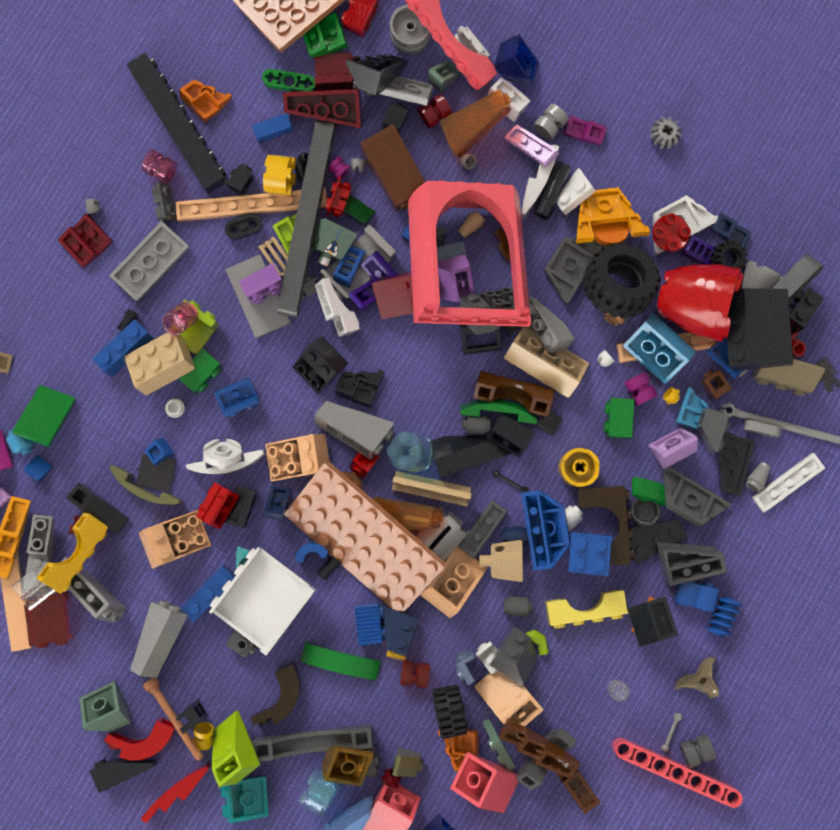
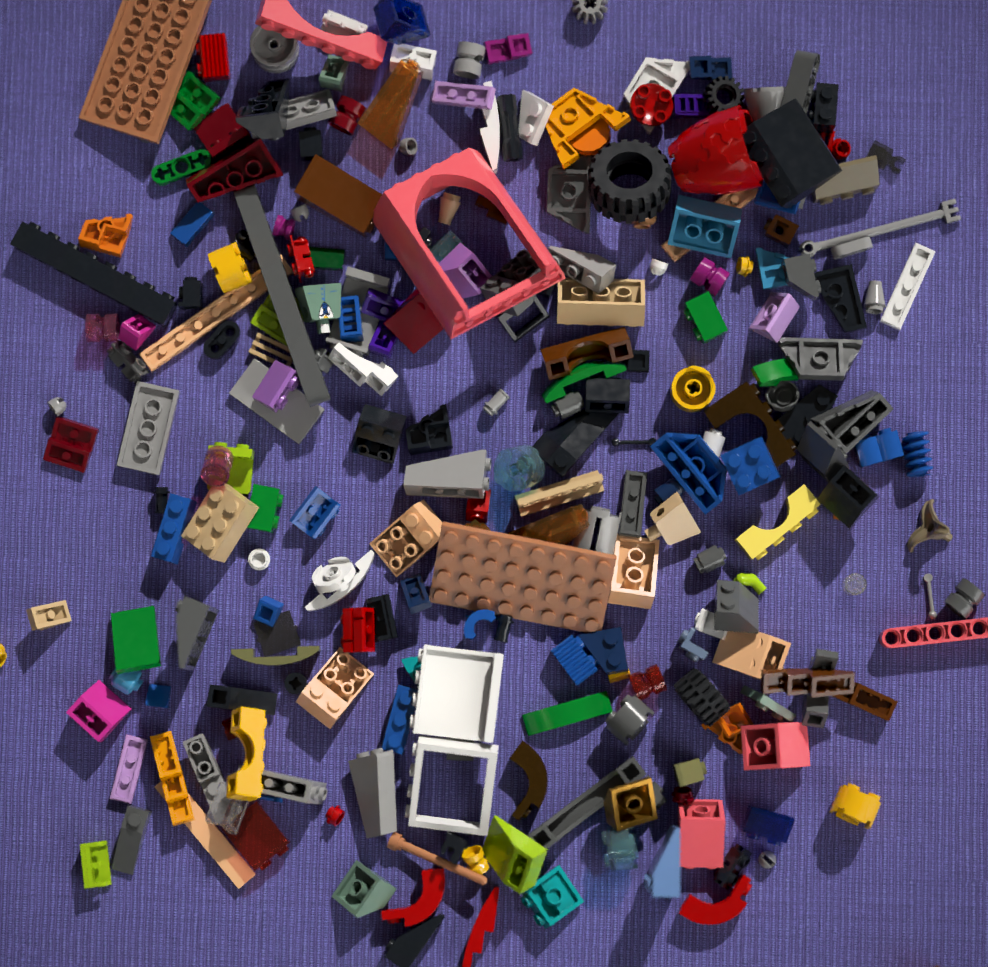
camera: 20 degrees left, 0 degrees up
(86, 433) = (193, 628): none -> dark grey slope
(117, 637) = (335, 815): none -> red plate
(150, 516) = (298, 683): none -> black wheel
(182, 182) = (135, 331): none -> dark pink slope
(238, 643) = (453, 747): none -> white window
(384, 696) = (629, 719): none -> dark grey brick
(422, 392) = (496, 402): none -> light grey pin
(651, 574) = (821, 452): none -> dark grey slope

